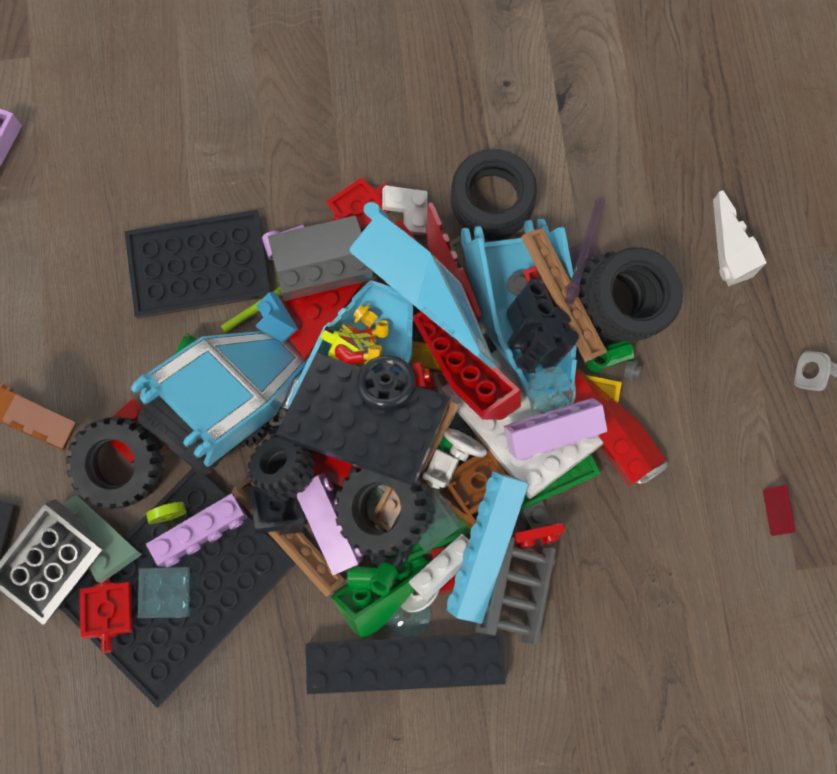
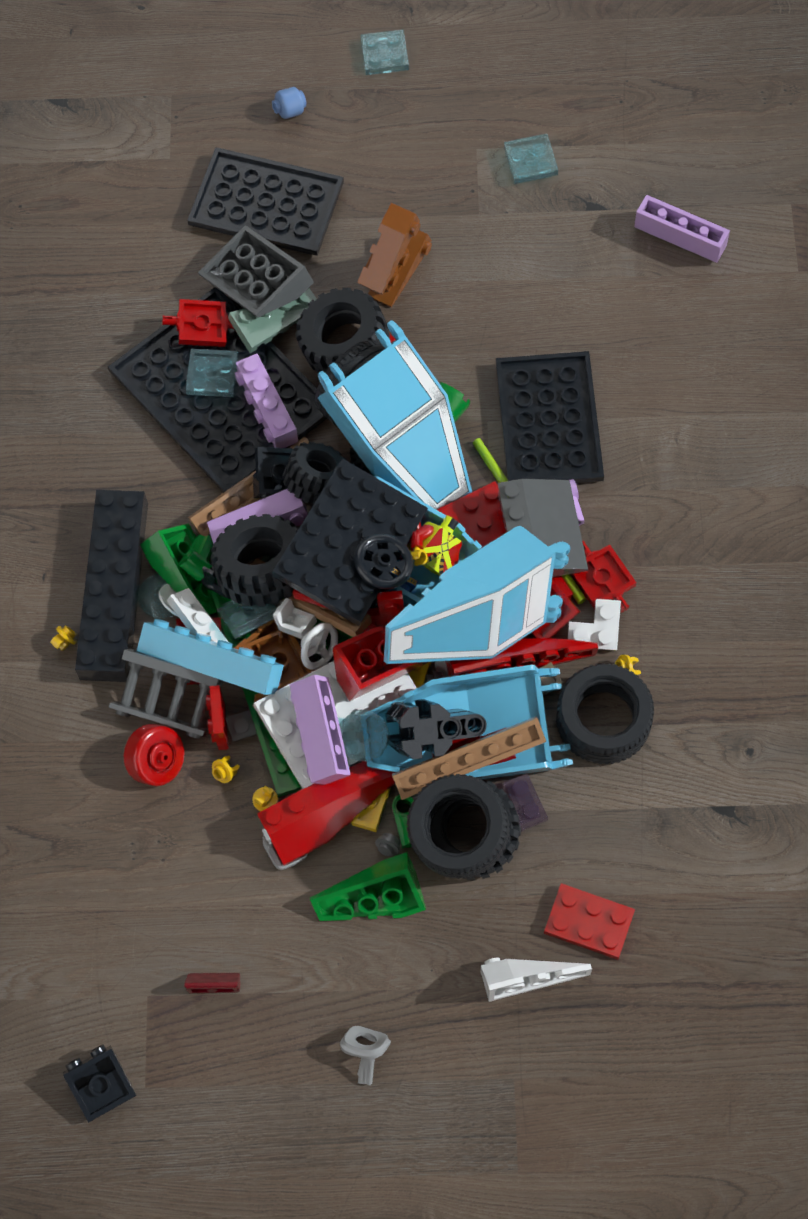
camera: 100 degrees right, 10 degrees down
(166, 512) = (286, 374): lime piece -> none
(275, 318) = (475, 486): dark azure slope -> none
(442, 183) = (627, 662): none -> yellow plate
(462, 703) = (65, 636): none -> yellow plate
(516, 283) = (494, 721): dark grey plate -> none
(573, 289) = (470, 763): clear purple bar -> none
(577, 594) = (154, 755): none -> red wheel
(583, 528) = (222, 770): none -> yellow plate
(603, 486) = (264, 798): none -> yellow plate
(672, 369) = (380, 890): none -> green wedge
(674, 200) = (589, 921): none -> red plate

